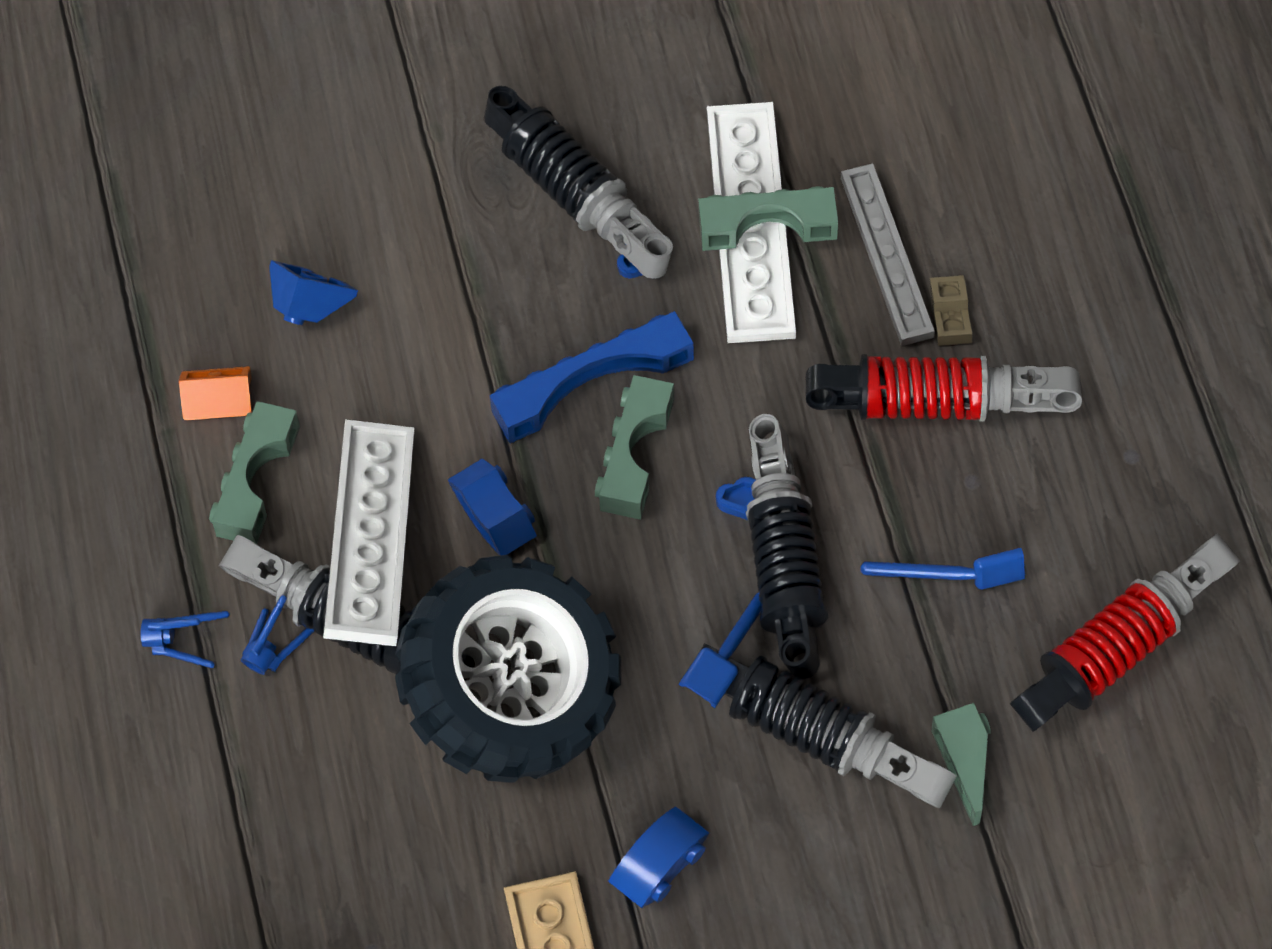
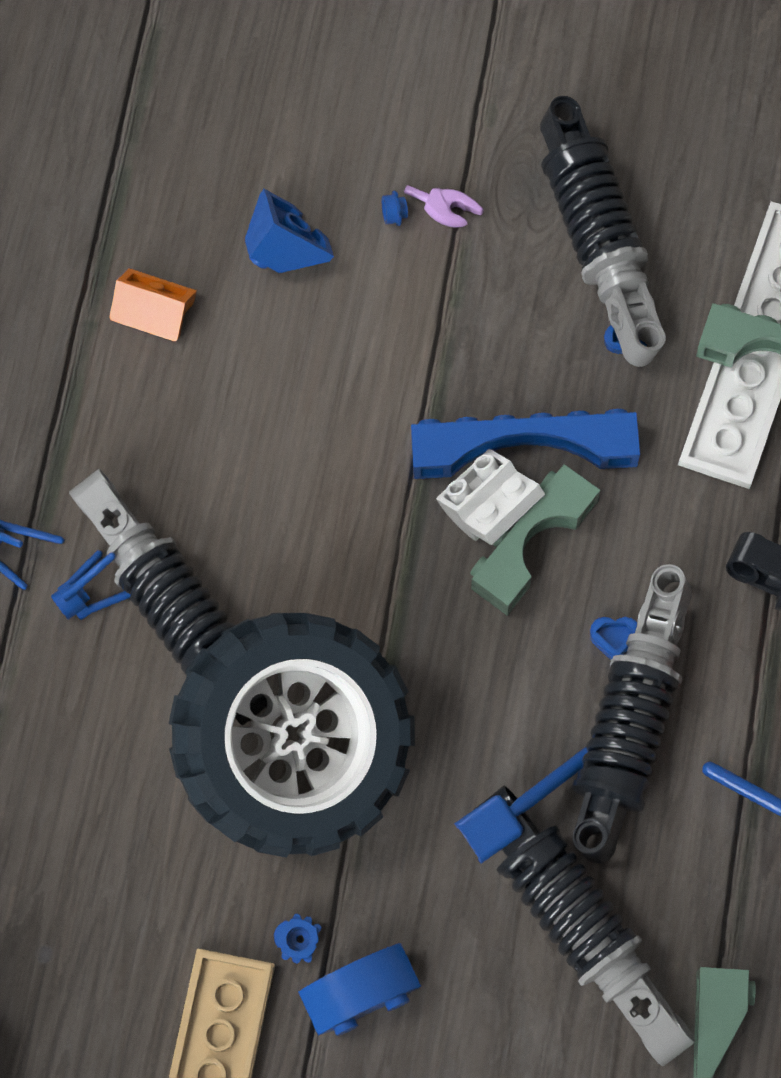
camera: 25 degrees right, 10 degrees up
(267, 436) = (179, 372): sand green arch -> none
(369, 533) = (223, 526): white plate -> none
(390, 235) = (394, 208): none -> blue plate
(429, 214) = (440, 203): none -> lavender hand
(492, 507) = (363, 543): blue brick -> none
(582, 428) = (489, 497): none -> white brick
(582, 834) = (287, 936): none -> blue animal

